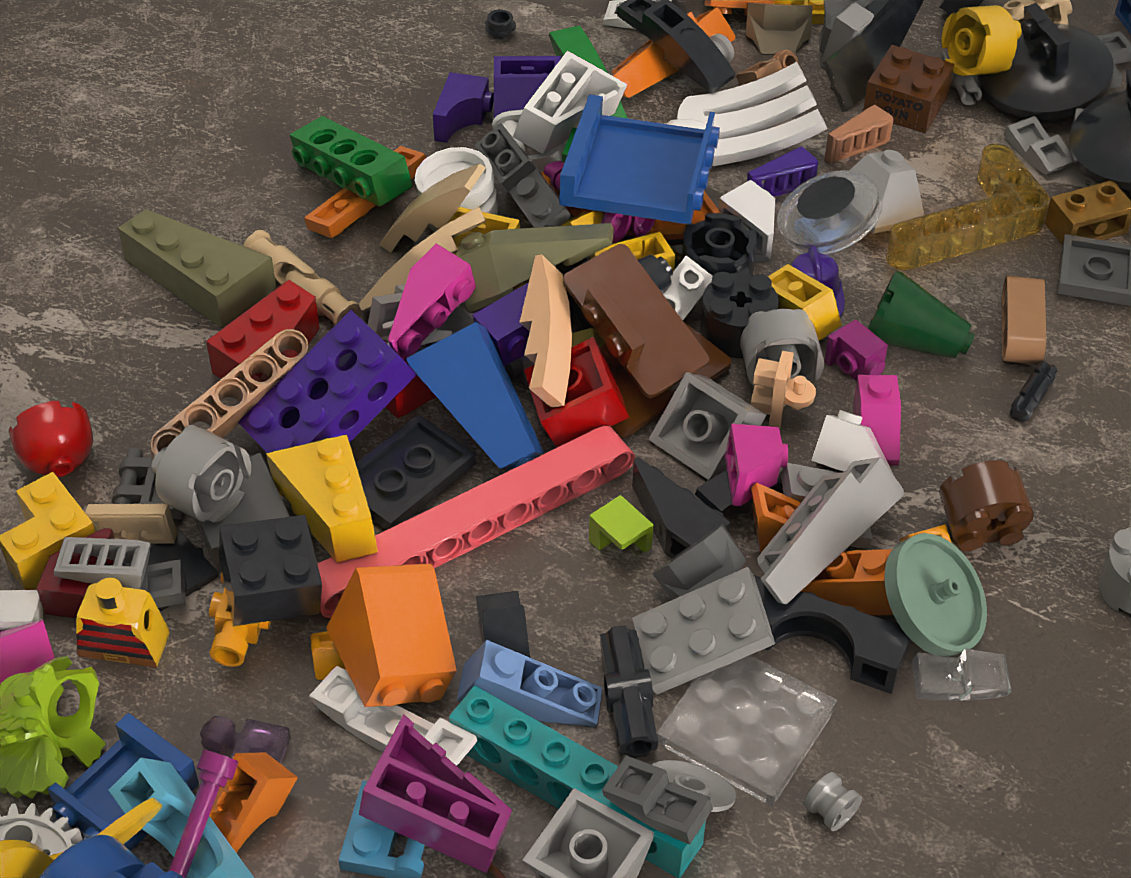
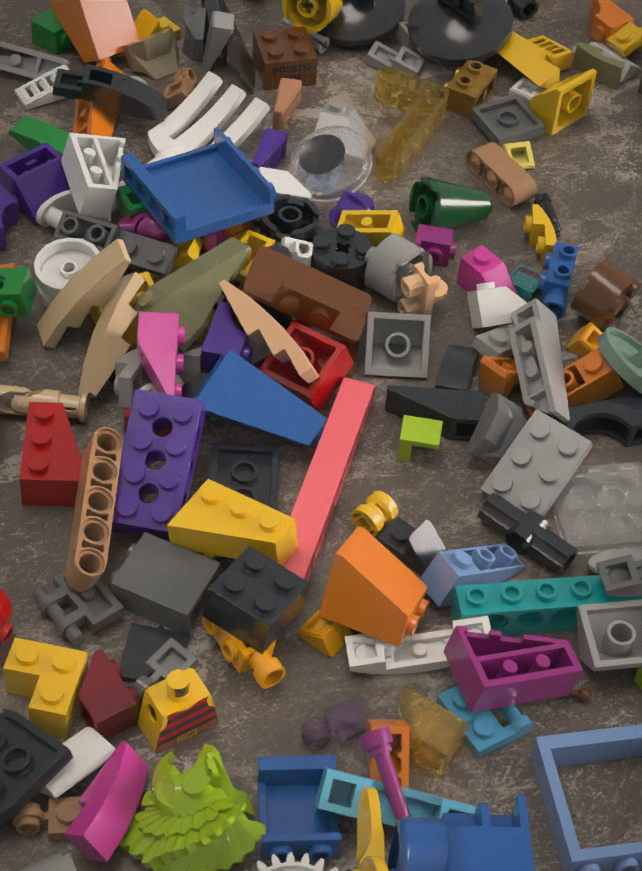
camera: 45 degrees left, 0 degrees up
(120, 550) = (150, 658): light grey slope -> none
(134, 521) = (106, 634): tan plate -> none
(201, 474) = (143, 565): light grey brick -> none
(311, 809) = (434, 731): none -> clear yellow slope
(486, 575) = (376, 512): none -> yellow wheel
(752, 457) = (457, 345): dark pink slope -> none
(927, 445) = (525, 281): none -> teal tile
(949, 456) = (558, 277): none -> blue brick
(993, 411) = (540, 231): none -> yellow slope
(1070, 312) = (521, 153): none -> light yellow slope

